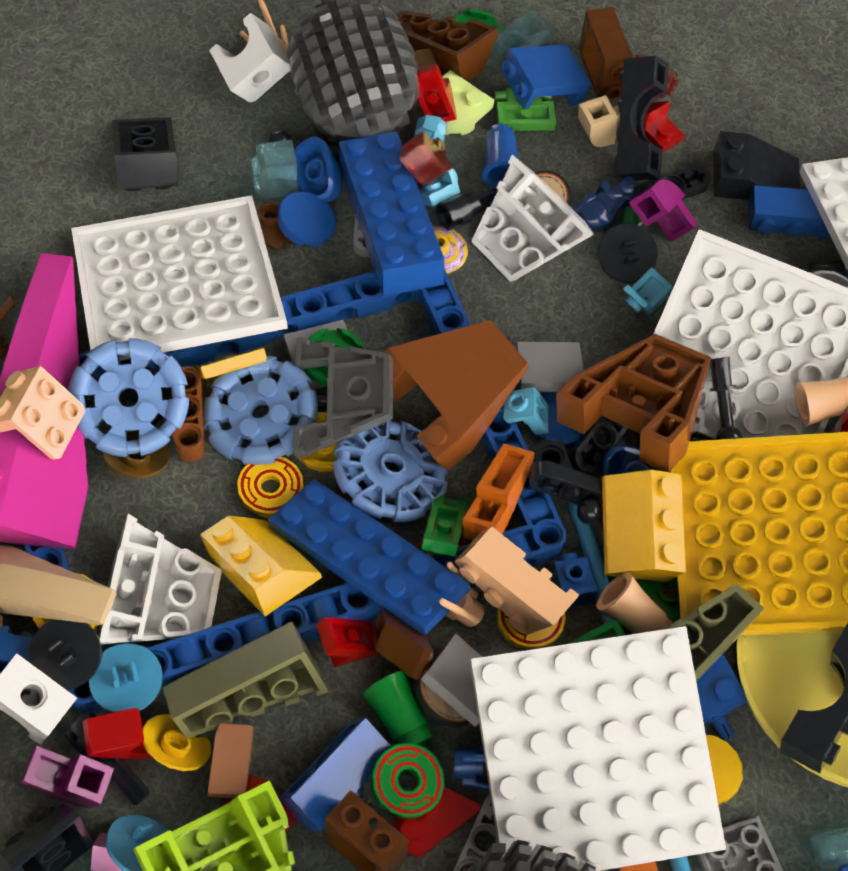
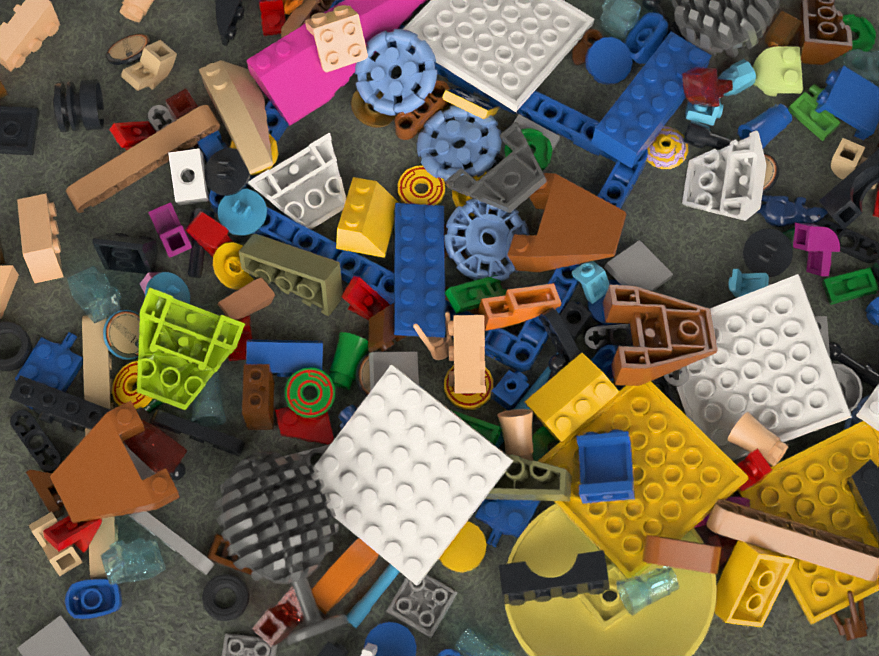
camera: 55 degrees right, 10 degrees up
(436, 94) = (765, 54): red slope -> none
(720, 214) = (850, 286): none -> green plate
(722, 384) = (688, 403): black pin -> none
(751, 551) = (605, 467): none -> blue panel

